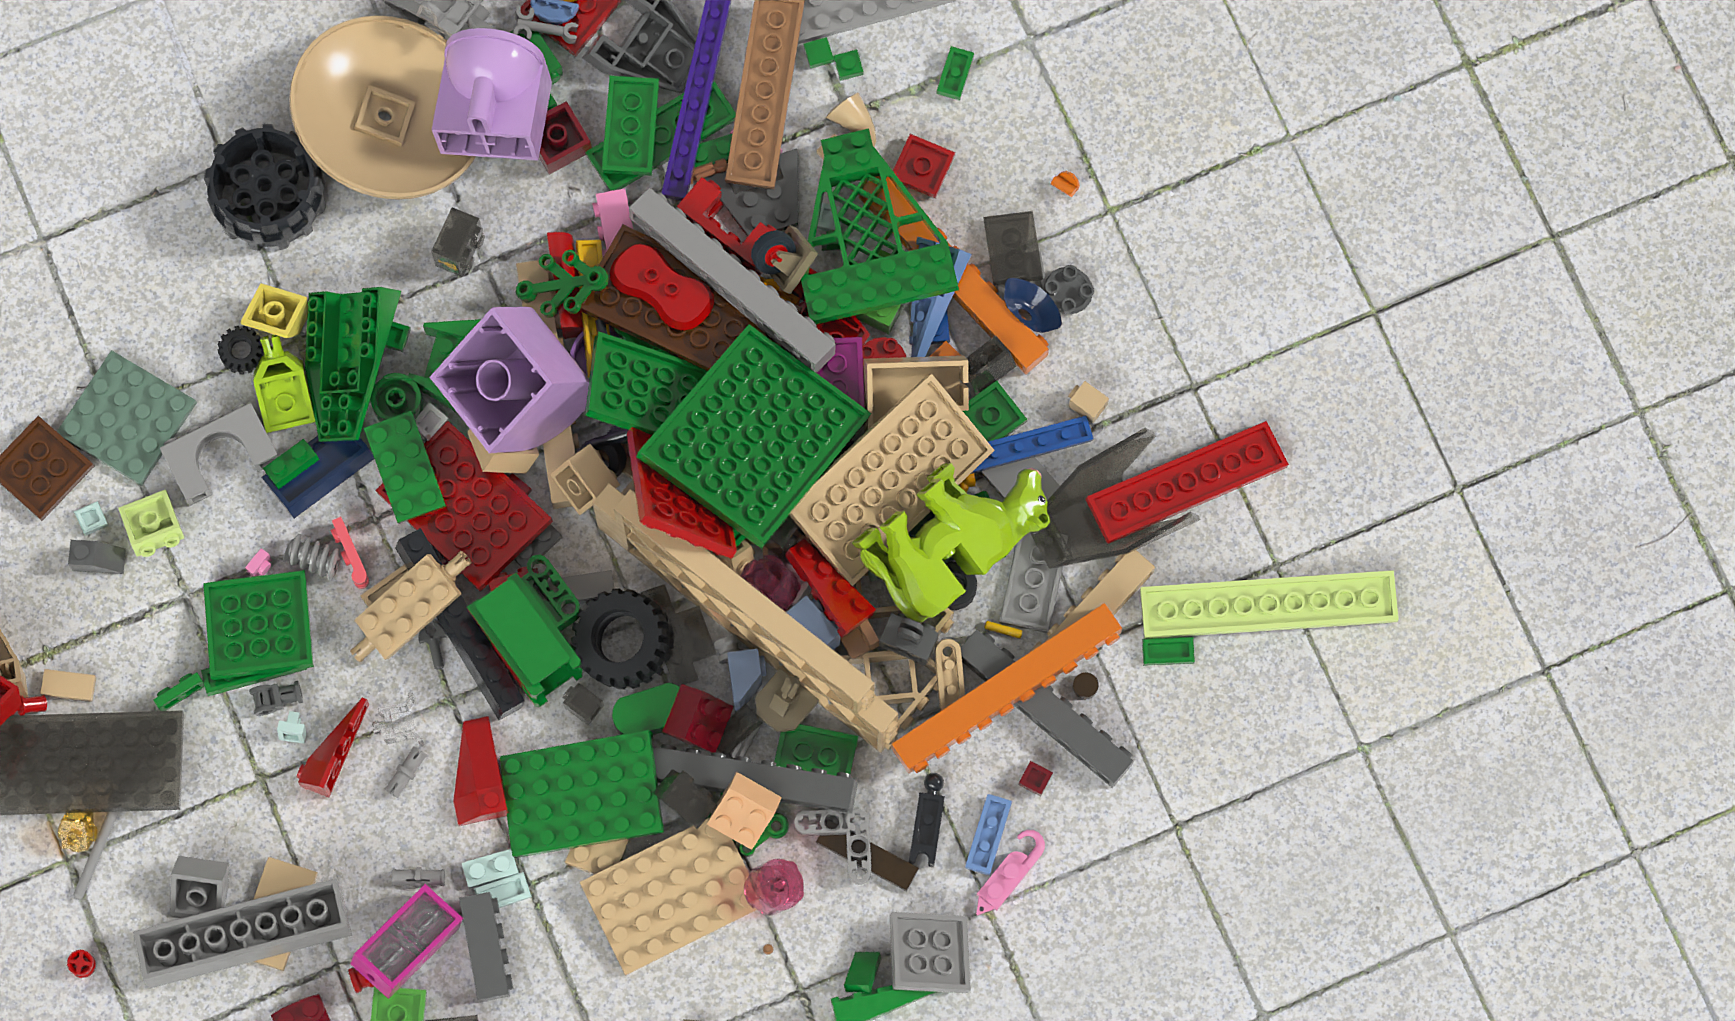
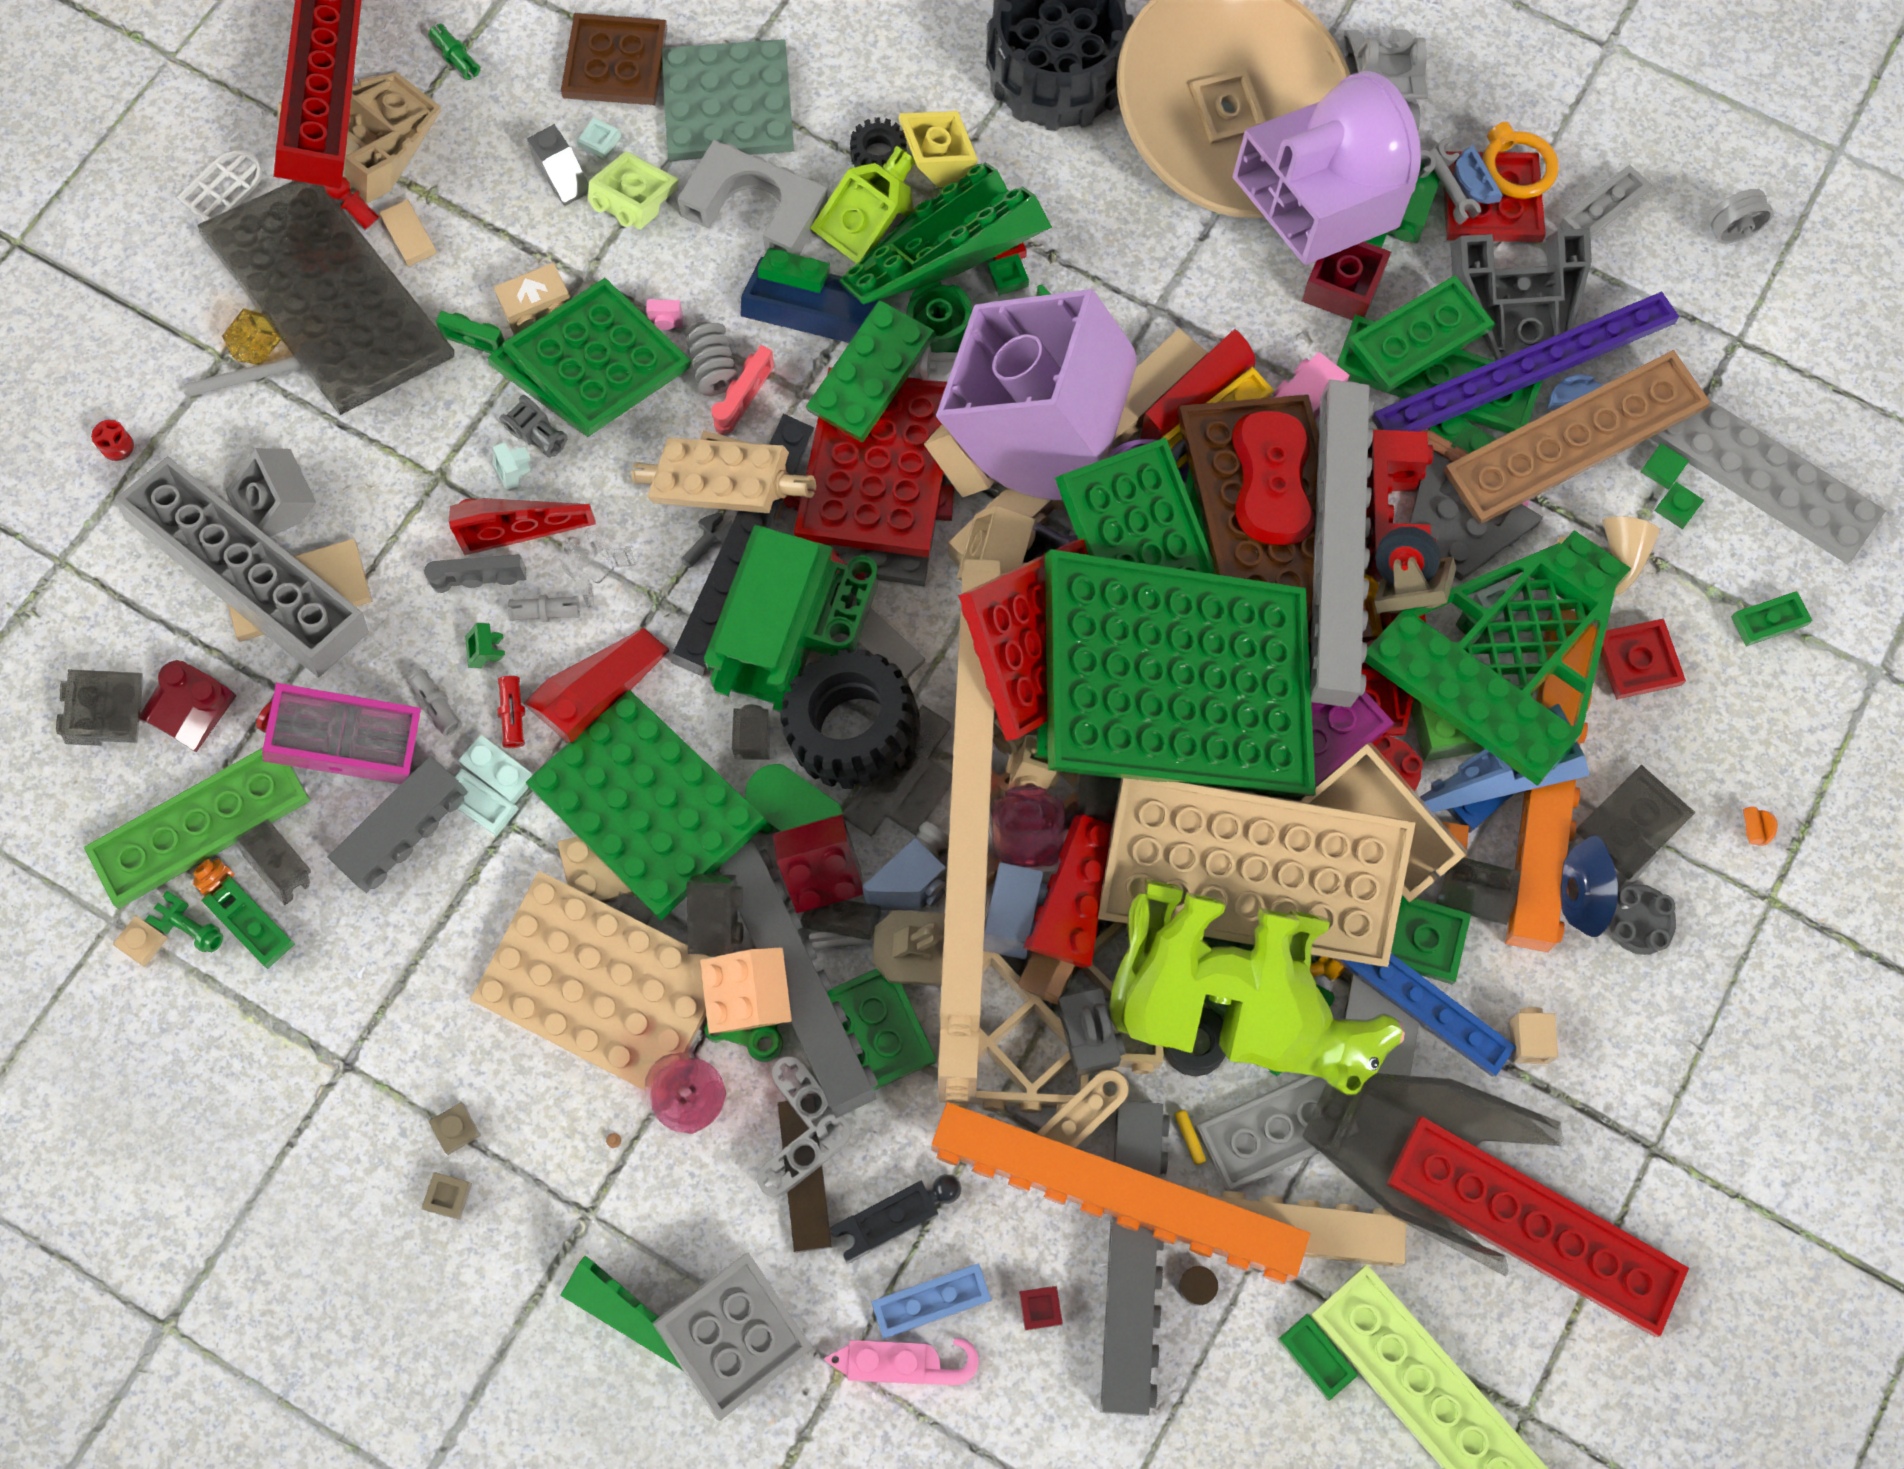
camera: 55 degrees right, 5 degrees down
(184, 637) = (531, 296): none -> tan brick
(351, 797) = (475, 572): none -> dark grey plate
(403, 825) = (479, 645): none -> green tile
(458, 242) = (1154, 258): clear smoke brick -> none
(460, 835) = (510, 689): none -> red pin
(565, 284) = (1221, 401): green plant -> none
(733, 65) = (1571, 389): none -> medium blue plate
(862, 972) = (653, 1271): green tile -> none

